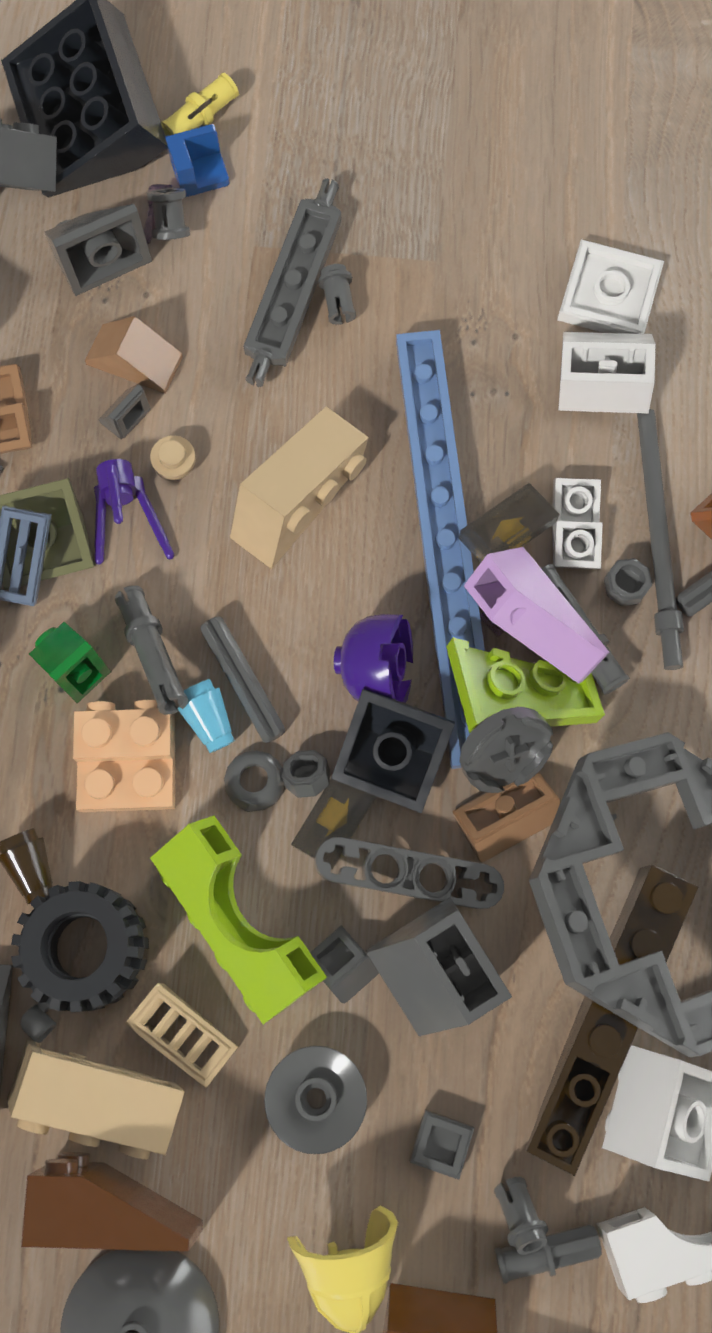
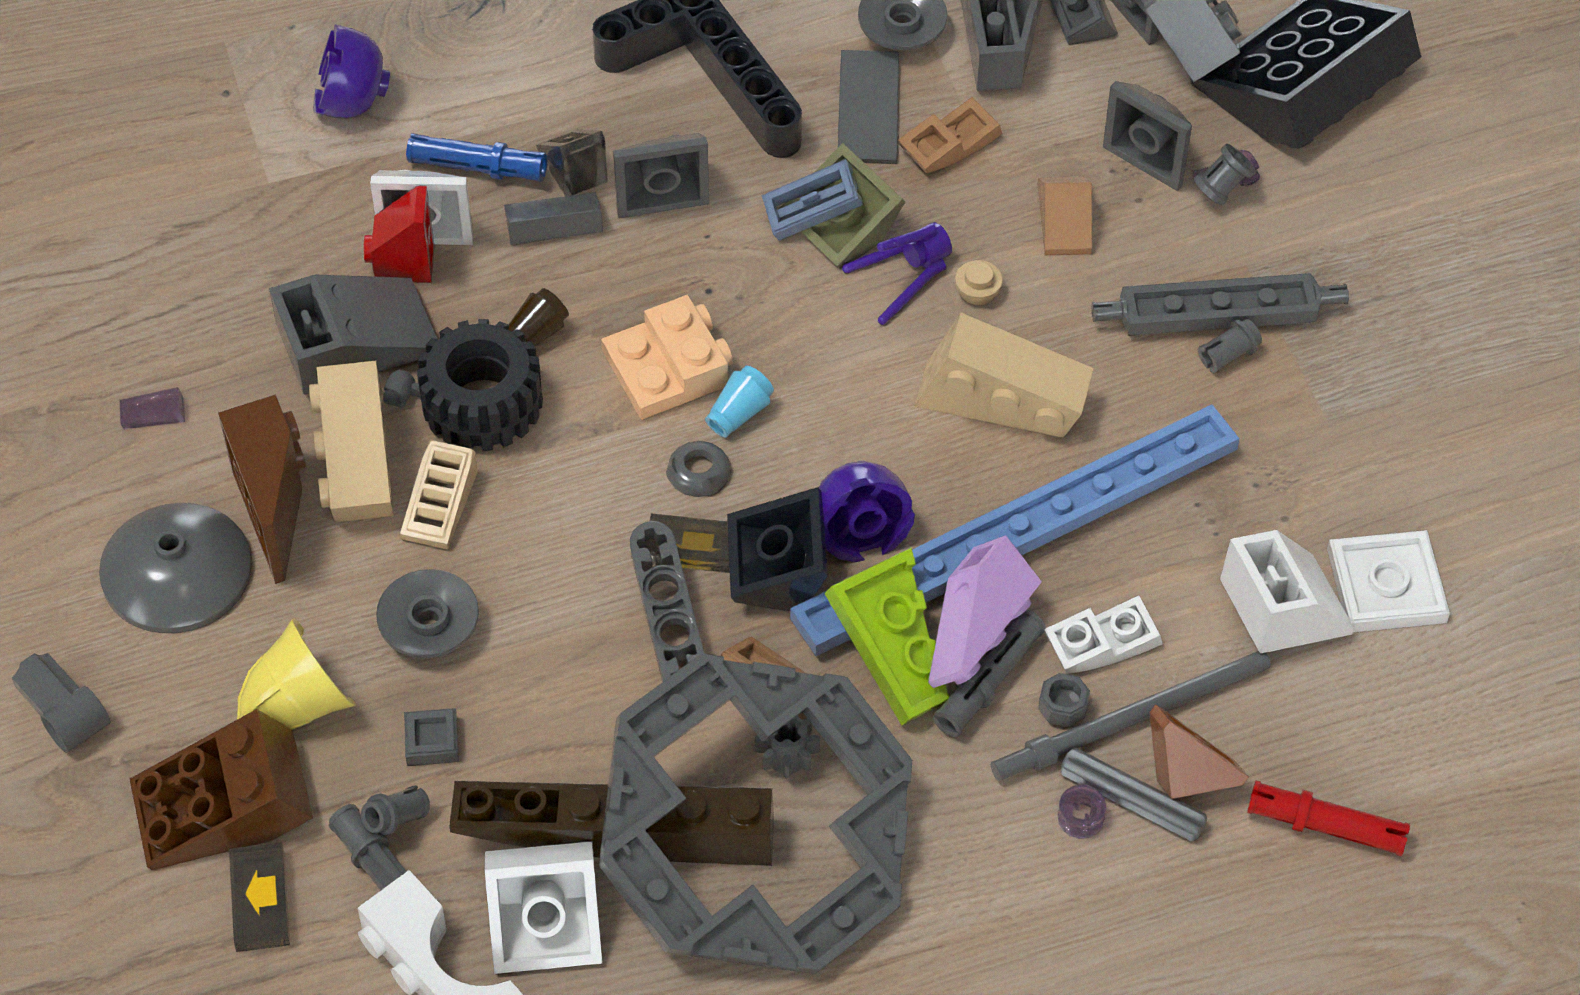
camera: 65 degrees right, 20 degrees down
(69, 661) = (731, 276): green slope -> none
(126, 412) = (1002, 227): dark grey slope -> none
(144, 634) = (789, 321): dark grey pin -> none
(197, 160) = (1300, 177): blue panel -> none
(200, 872) = (590, 446): lime arch -> none
(218, 92) = (1392, 168): light yellow pin -> none
(242, 679) = (789, 419): dark grey axle -> none
(306, 773) = (722, 496): dark grey tile -> none
(344, 964) = (558, 600): dark grey slope -> none
(438, 971) = (593, 662): dark grey slope -> none
(506, 749) = (825, 632): dark grey tile -> none
(509, 523) = (1064, 567): clear smoke tile -> none

